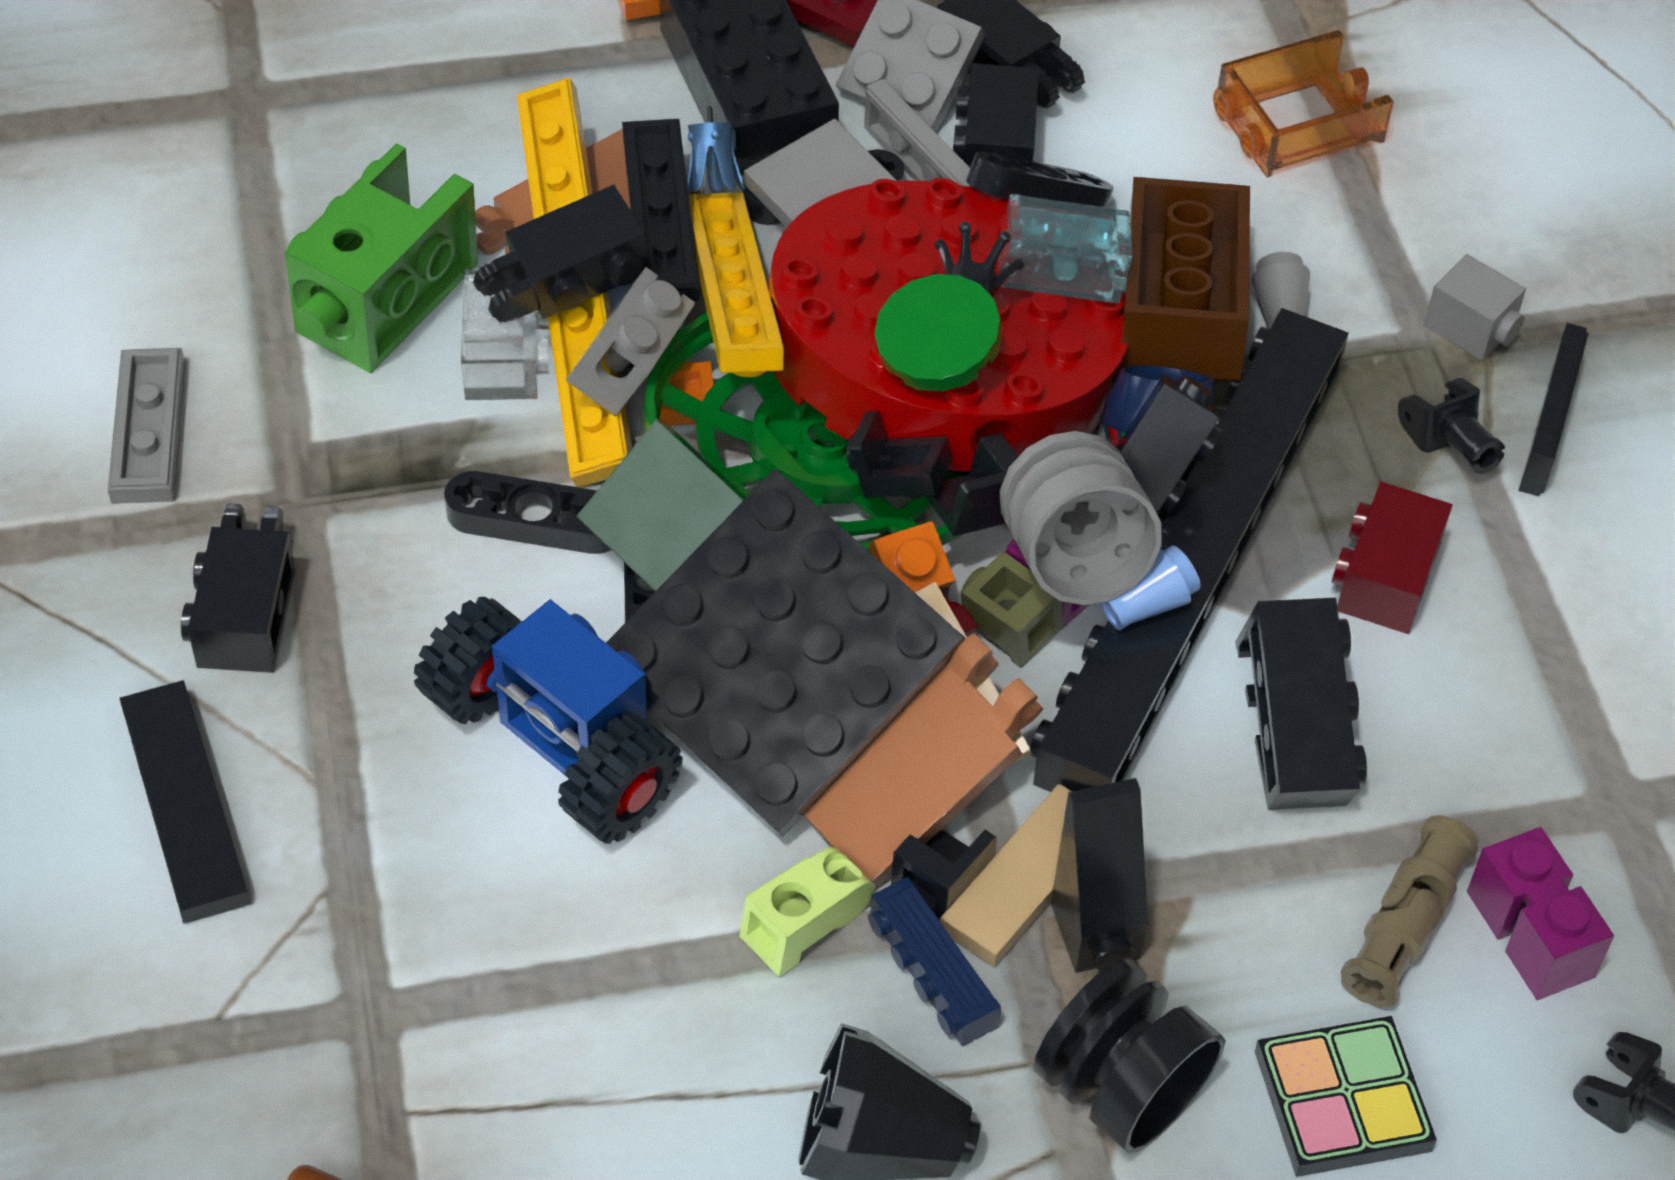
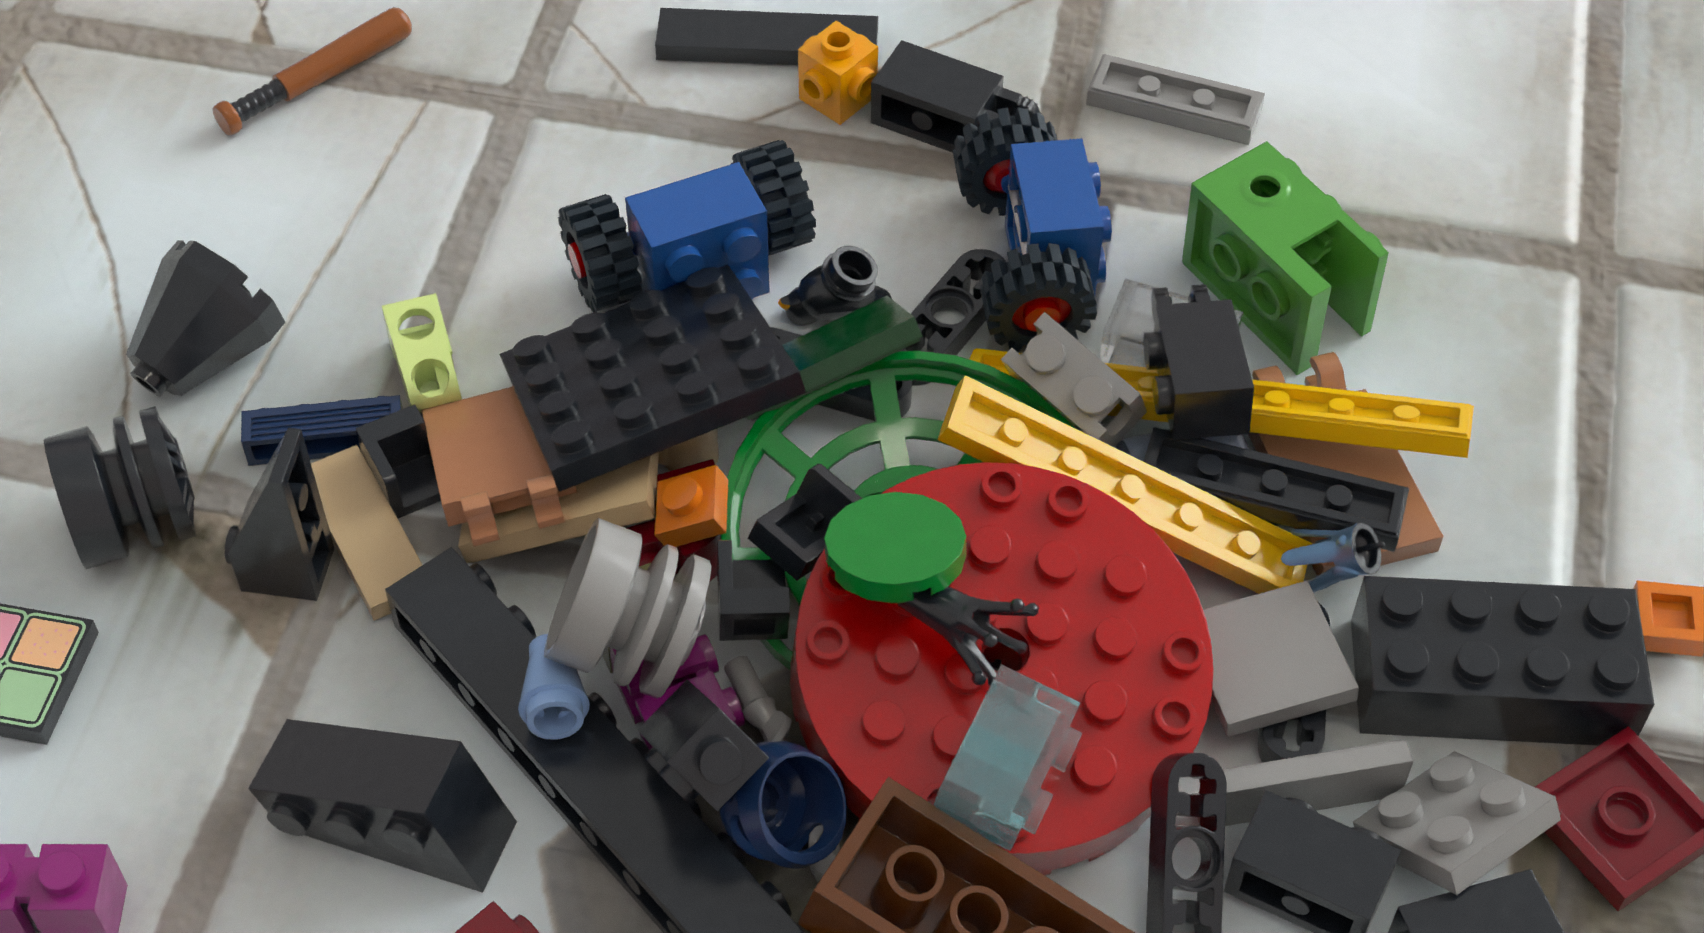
camera: 115 degrees right, 0 degrees up
(238, 690) = (837, 71): none -> light orange brick
(416, 431) = (1049, 223): none -> brick
(554, 573) = (834, 288): none -> black animal
(1409, 911) = (124, 800): dark tan piece -> none

